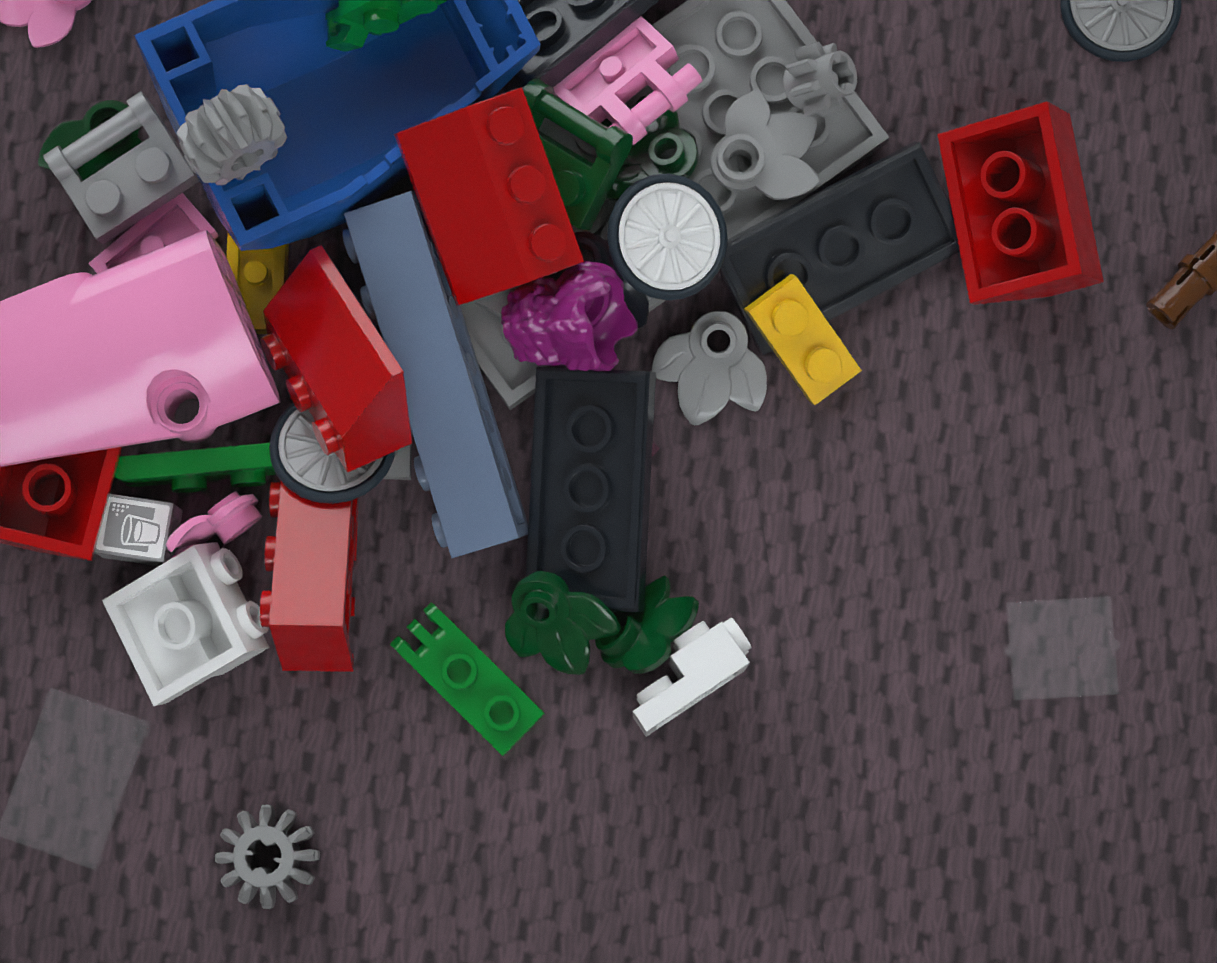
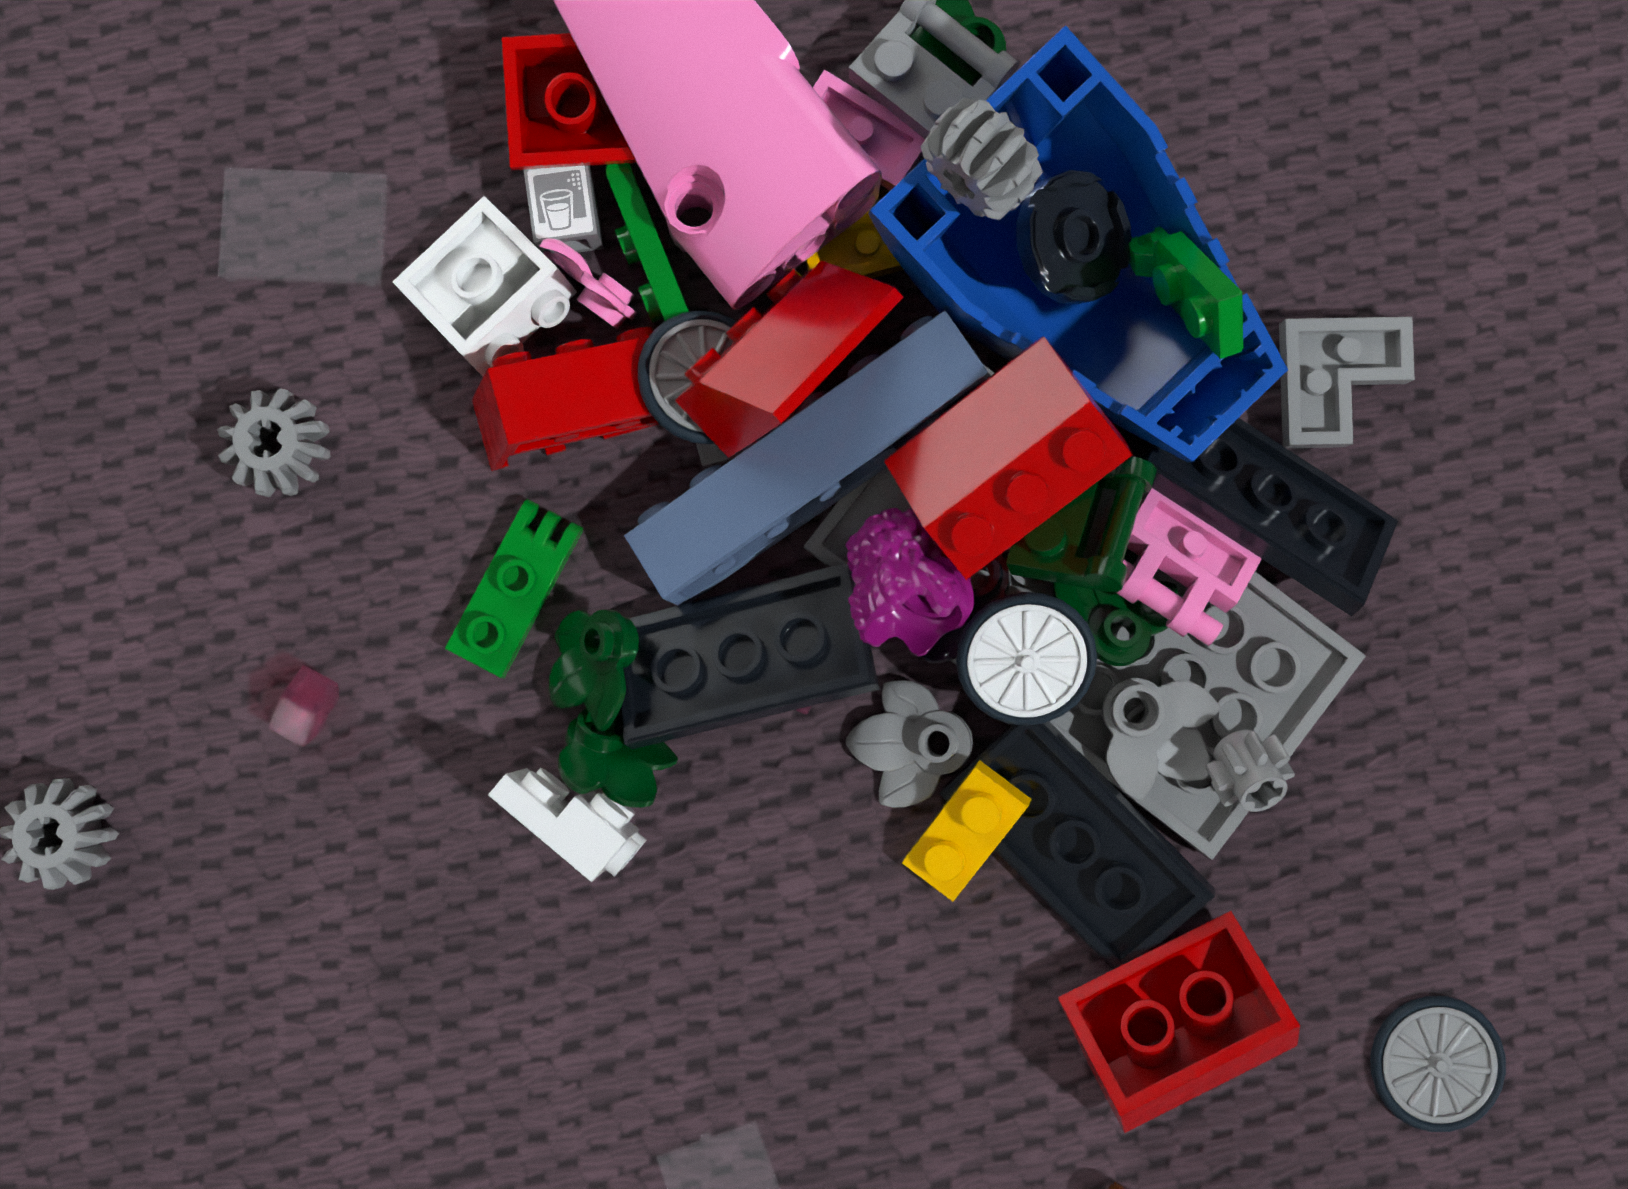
camera: 70 degrees right, 5 degrees up
(316, 87) = (1073, 237): none -> black tile
(516, 897) = (305, 706): none -> clear pink piece

